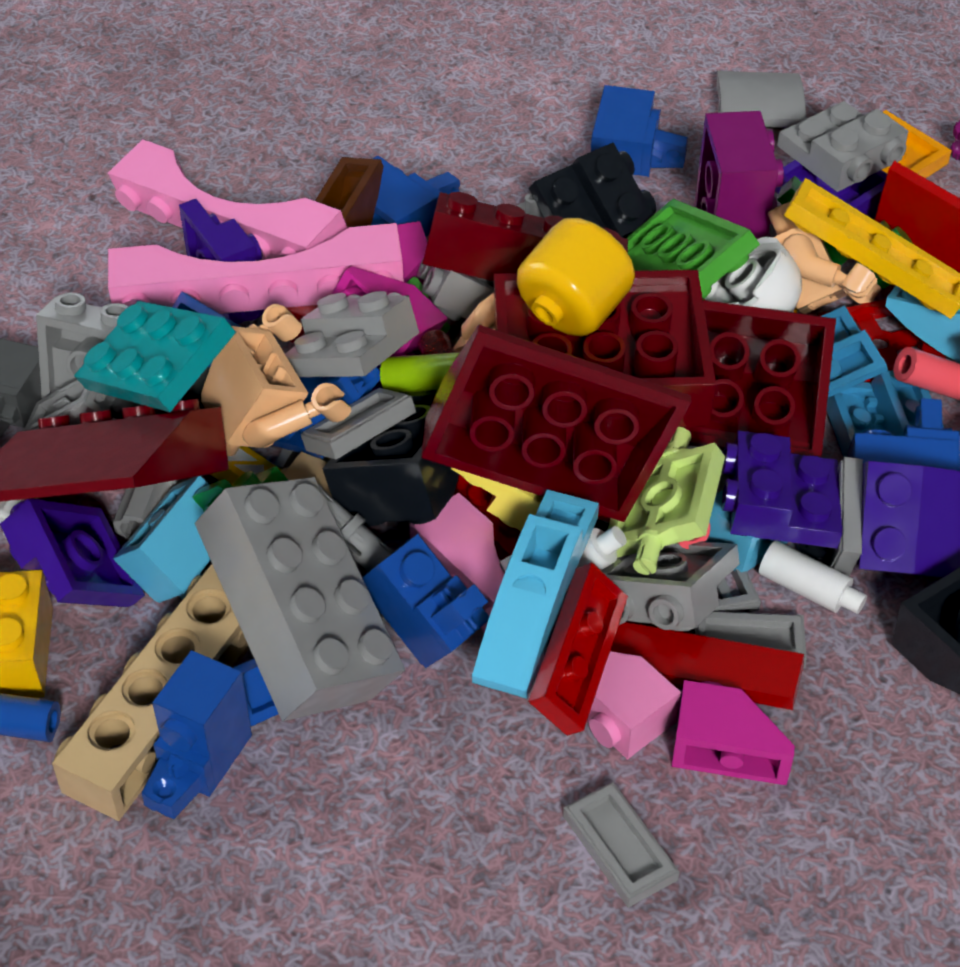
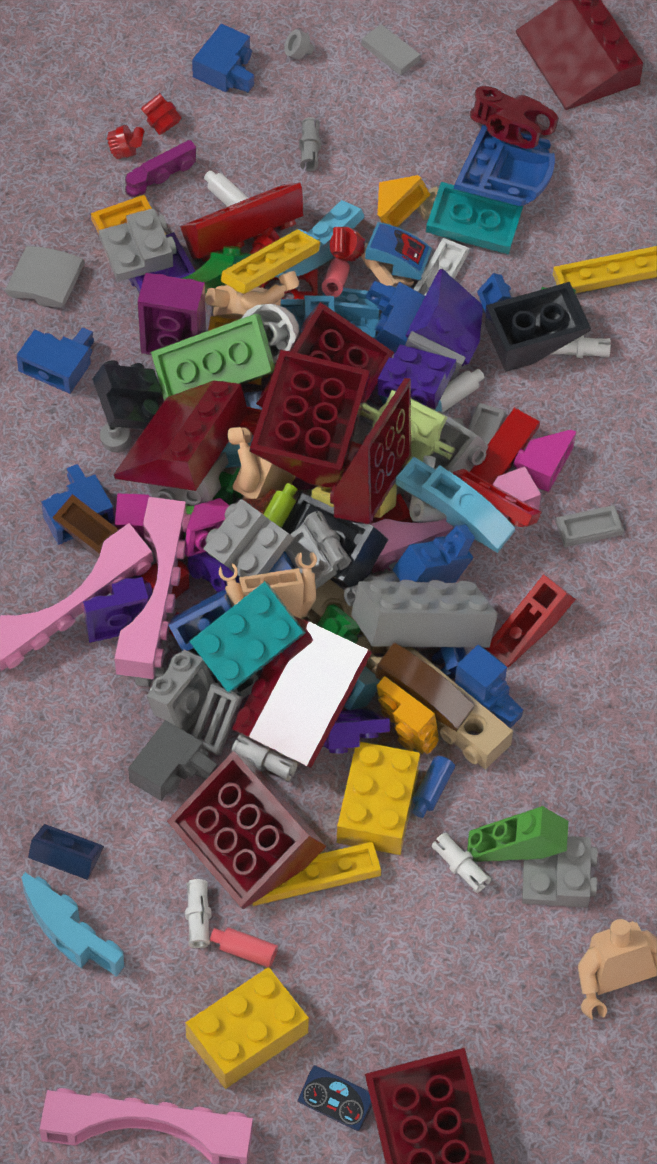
camera: 75 degrees left, 10 degrees up
(103, 626) = (413, 720): none -> light orange plate
(152, 628) = (425, 685): none -> reddish brown slope
(380, 424) = (327, 541): none -> light grey pin
(380, 785) = (530, 620): none -> red slope
(575, 276) = (290, 404): yellow head -> none

